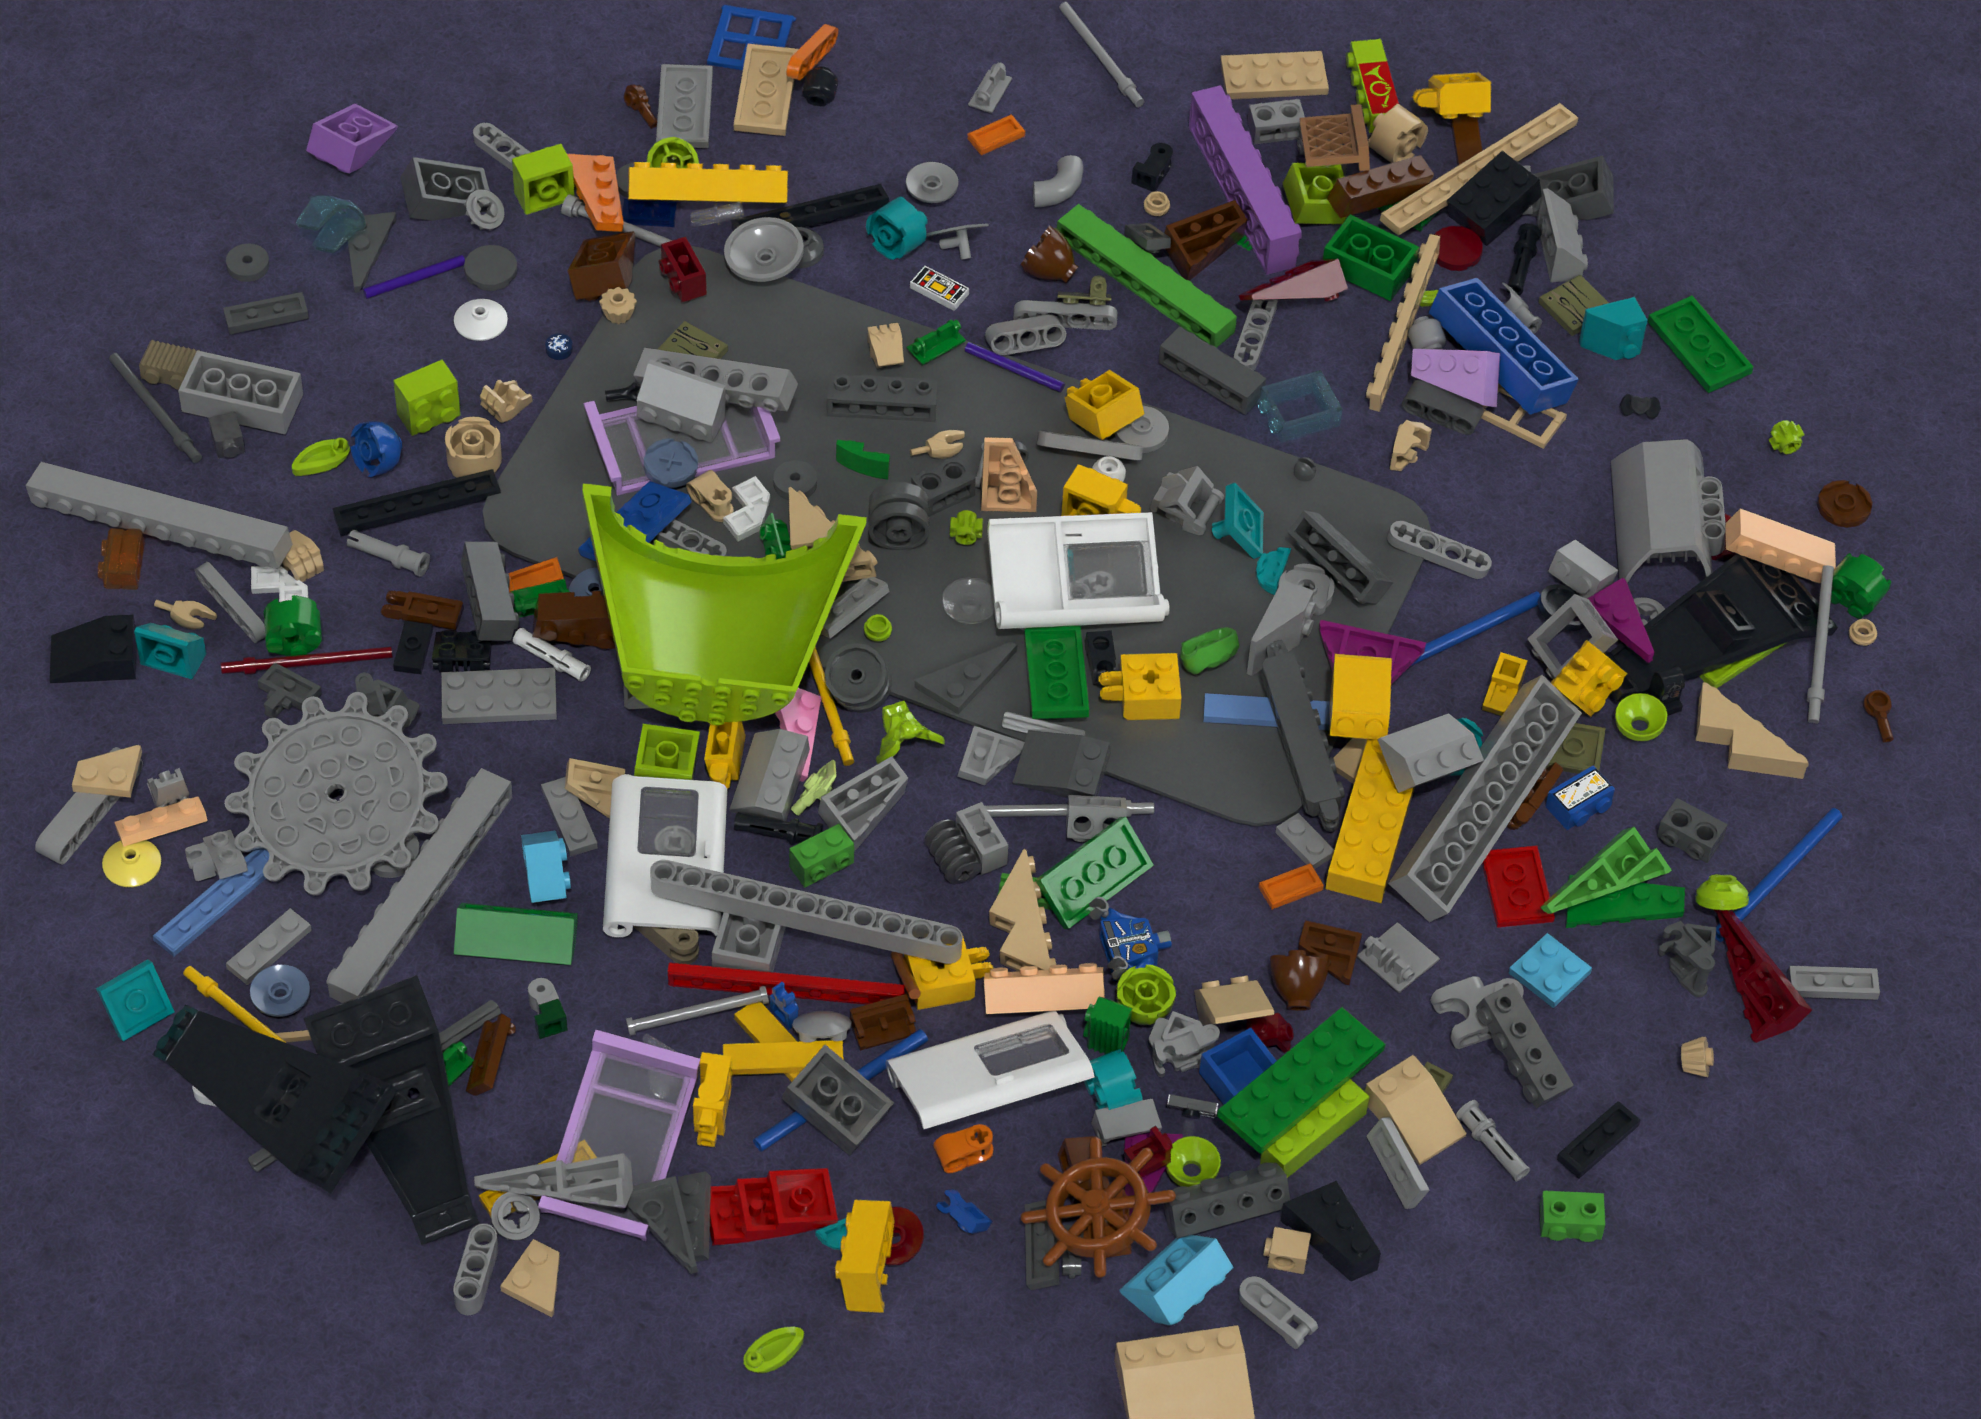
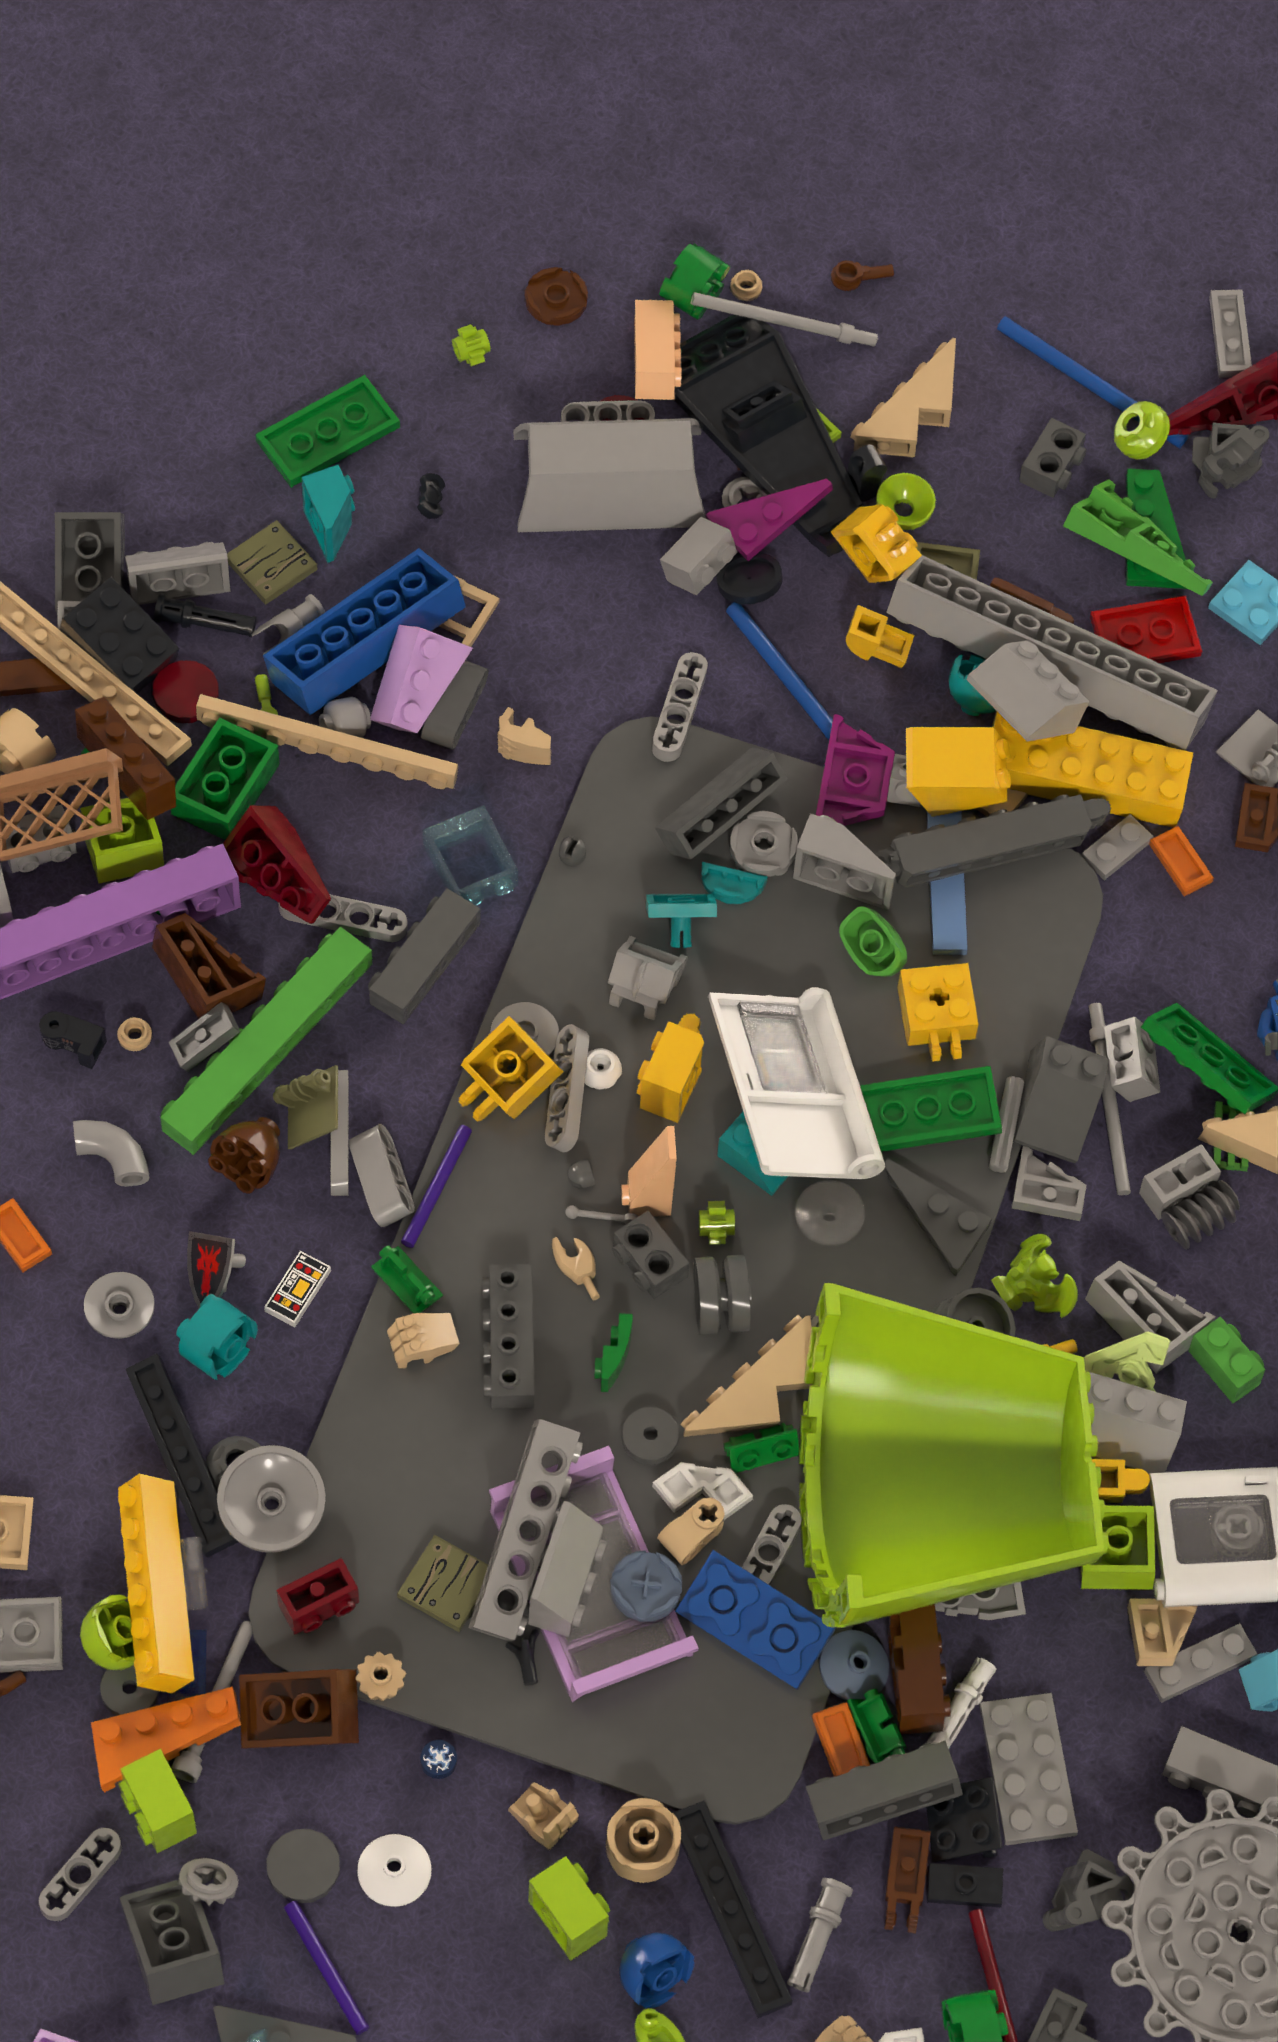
camera: 95 degrees left, 10 degrees up
(792, 831) = (1190, 1390): black pin -> none
(1100, 655) = (897, 1061): black leg -> none
(1576, 606) = (800, 534): light grey window -> none
(1580, 798) = (1023, 563): brick -> none

